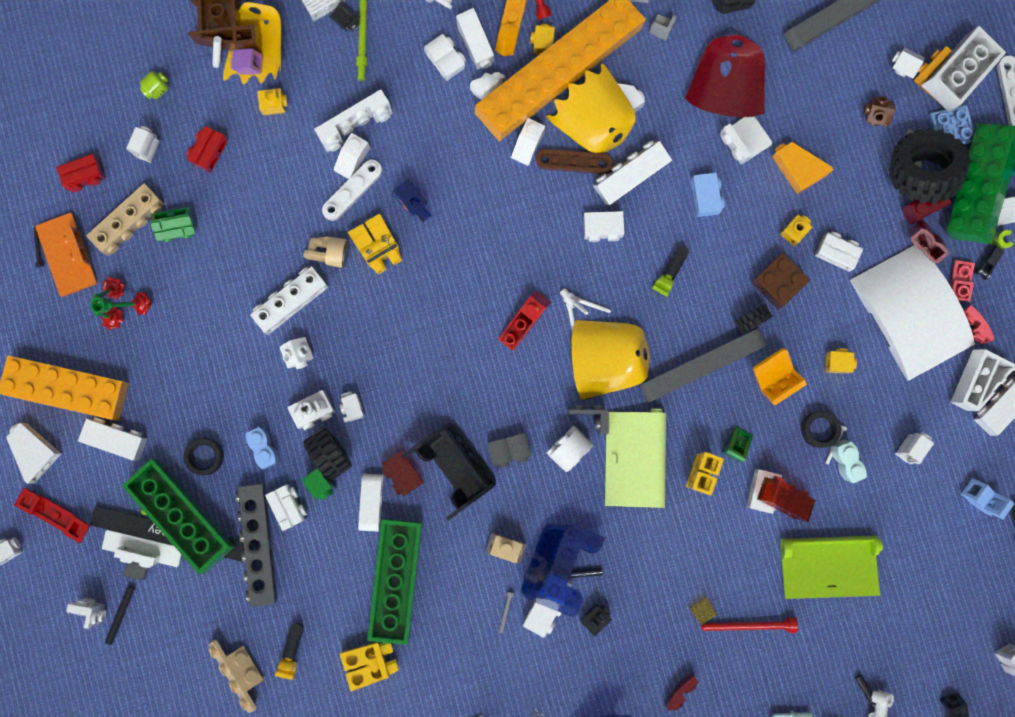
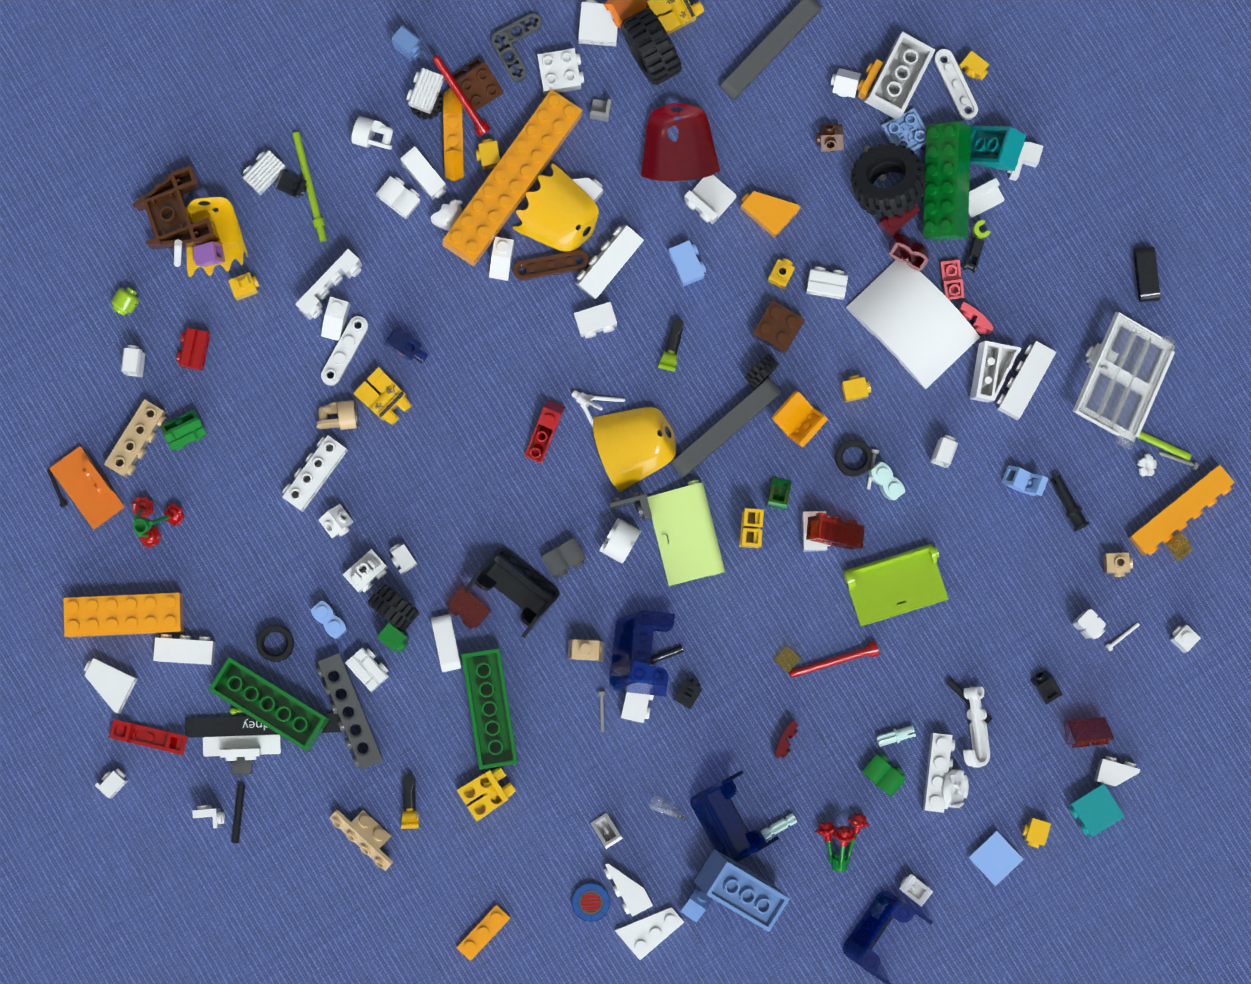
camera: 15 degrees left, 0 degrees up
(81, 173) = (79, 405): red brick -> none

